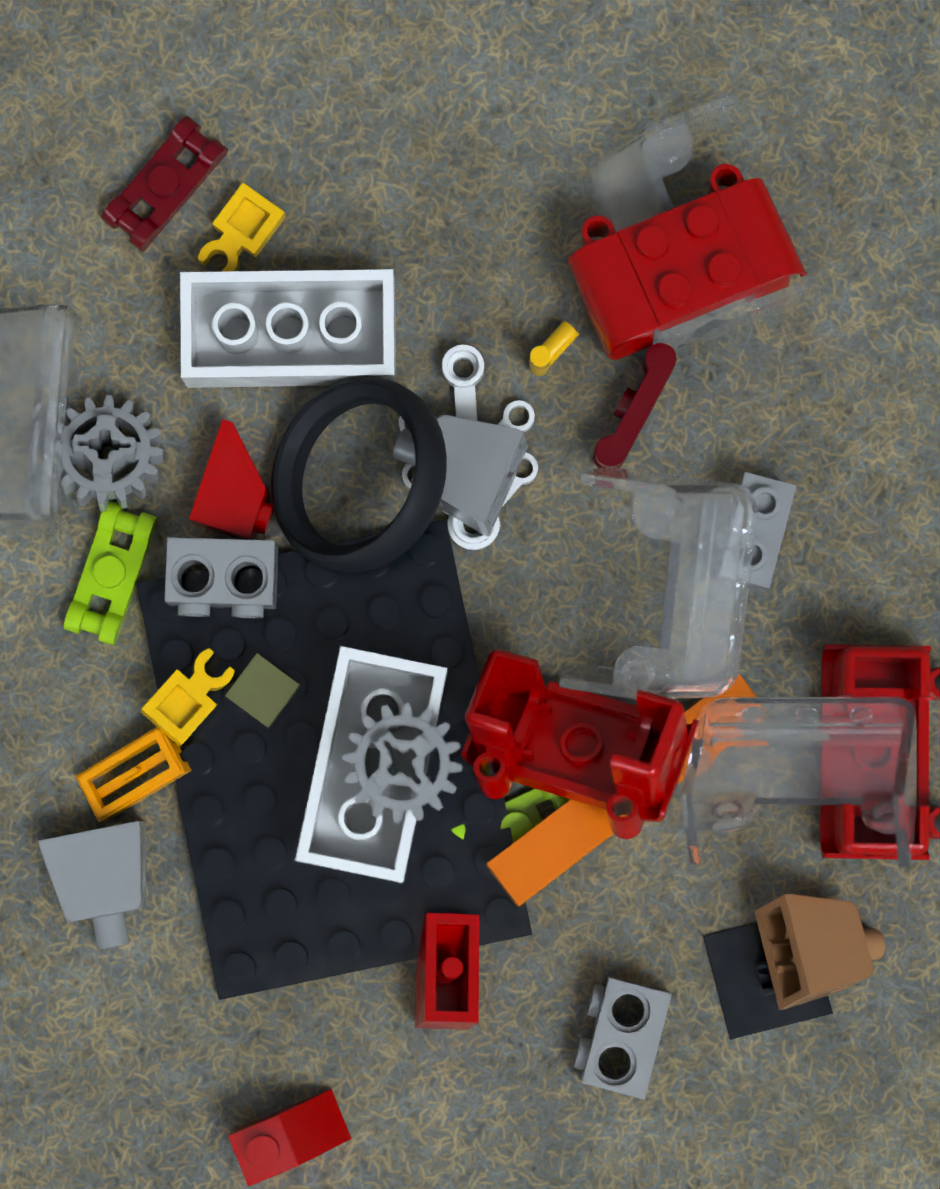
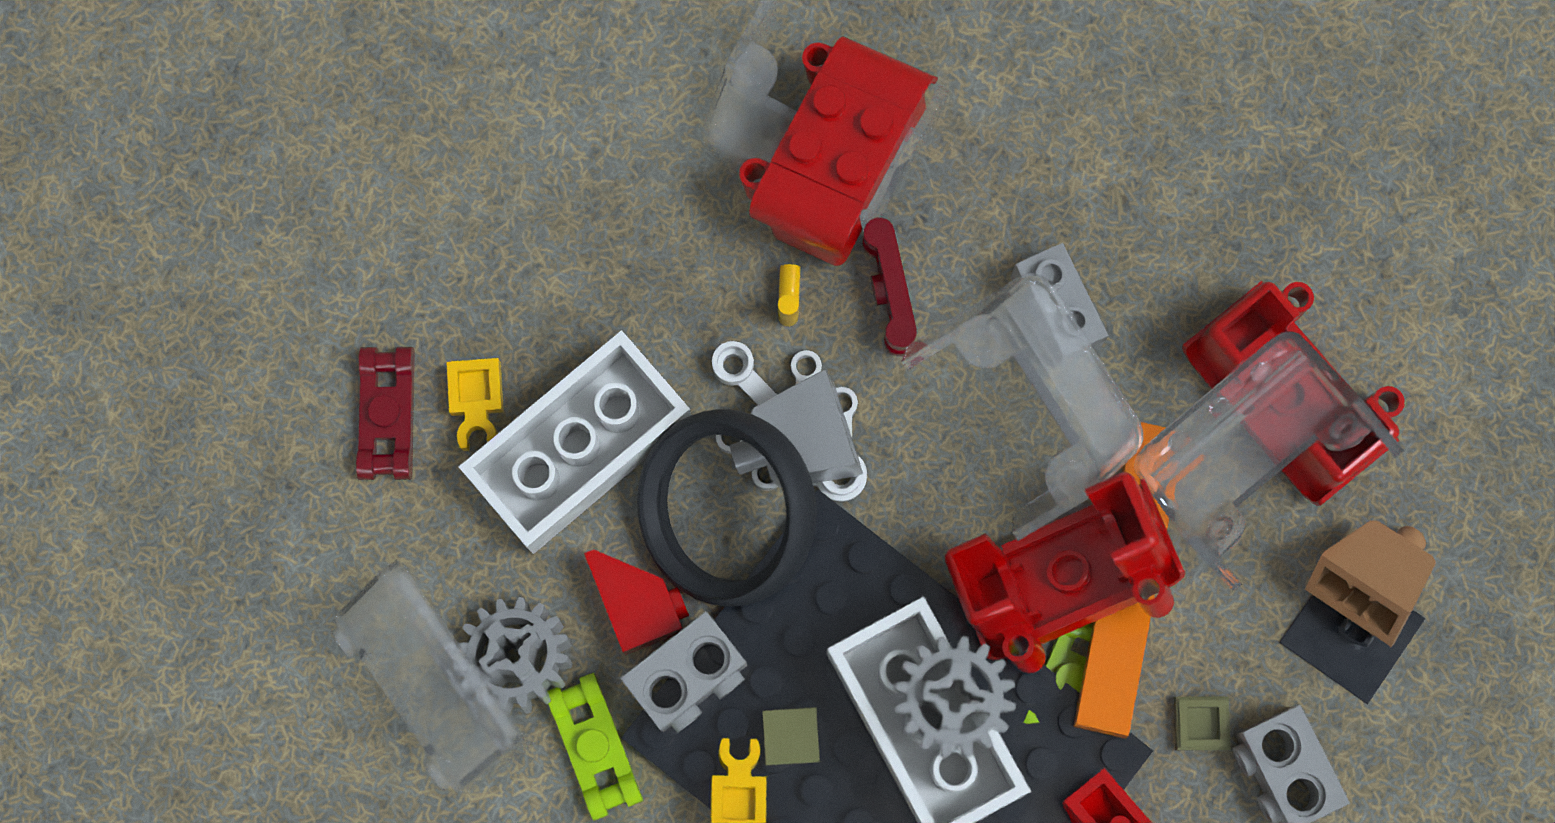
camera: 40 degrees left, 5 degrees down
(588, 946) = (1202, 723): none -> olive tile

